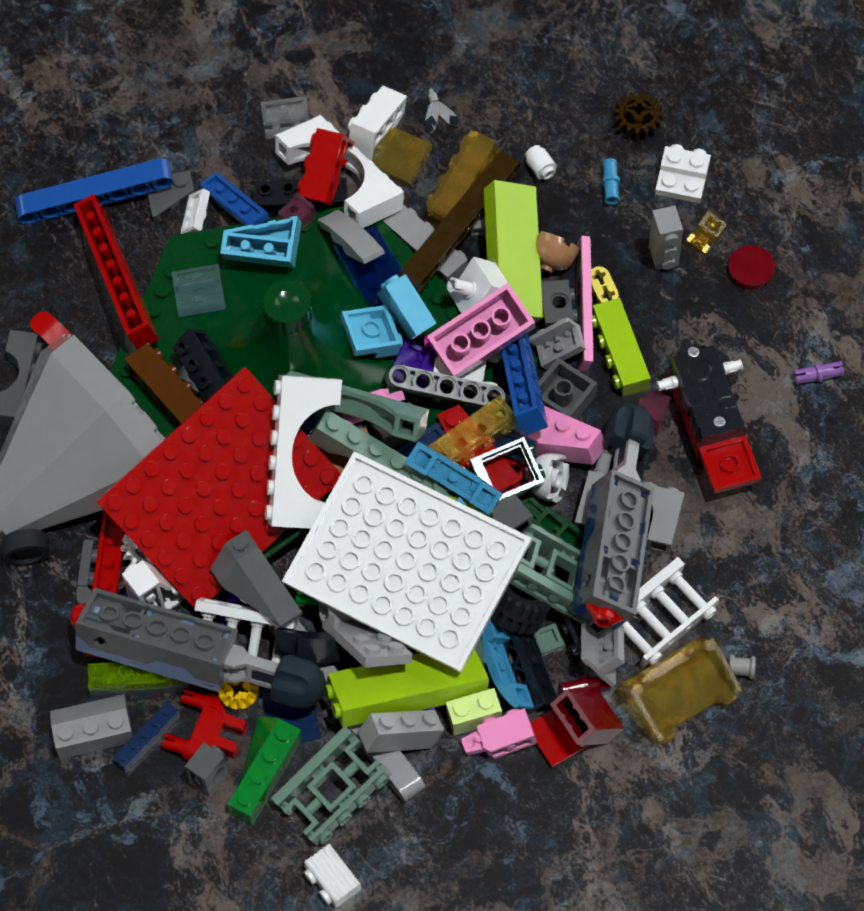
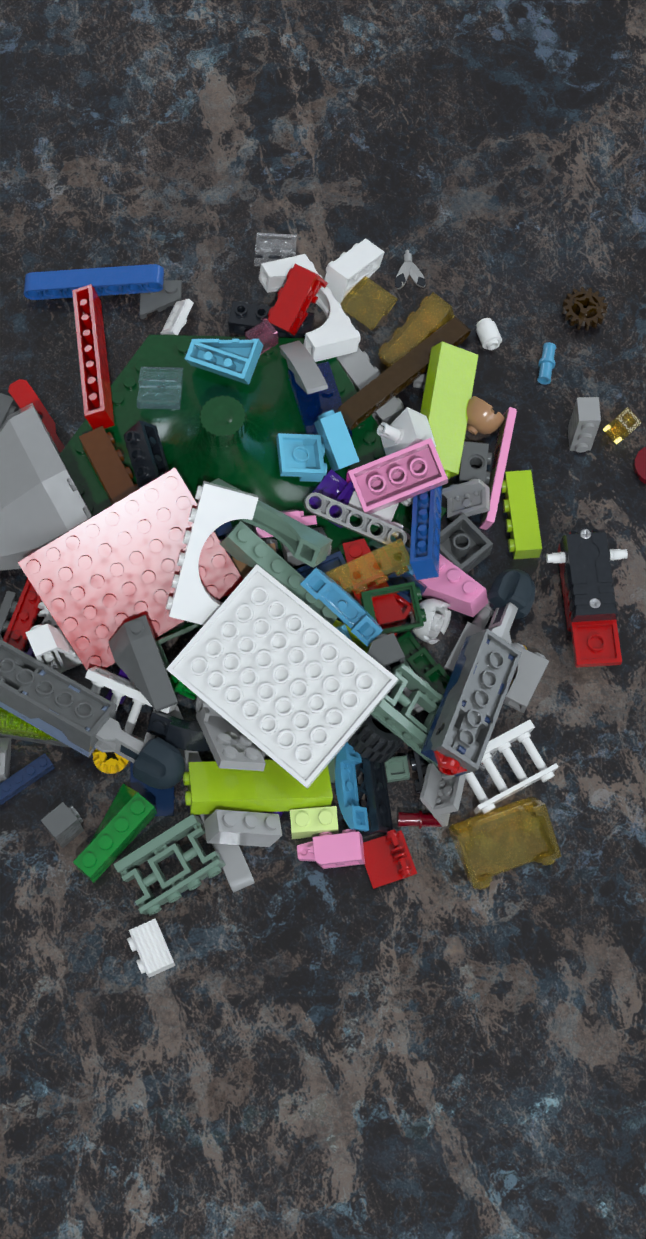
camera: 10 degrees right, 5 degrees up
(209, 727) = (75, 786): red connector -> none
(234, 201) = (212, 314): blue tile -> none
(587, 716) = (414, 851): dark red brick -> none
(608, 285) = (523, 455): light yellow beam -> none
(657, 406) = (542, 575): clear pink brick -> none
(683, 173) = (612, 369): white plate -> none
(742, 666) = (566, 832): light grey bush -> none

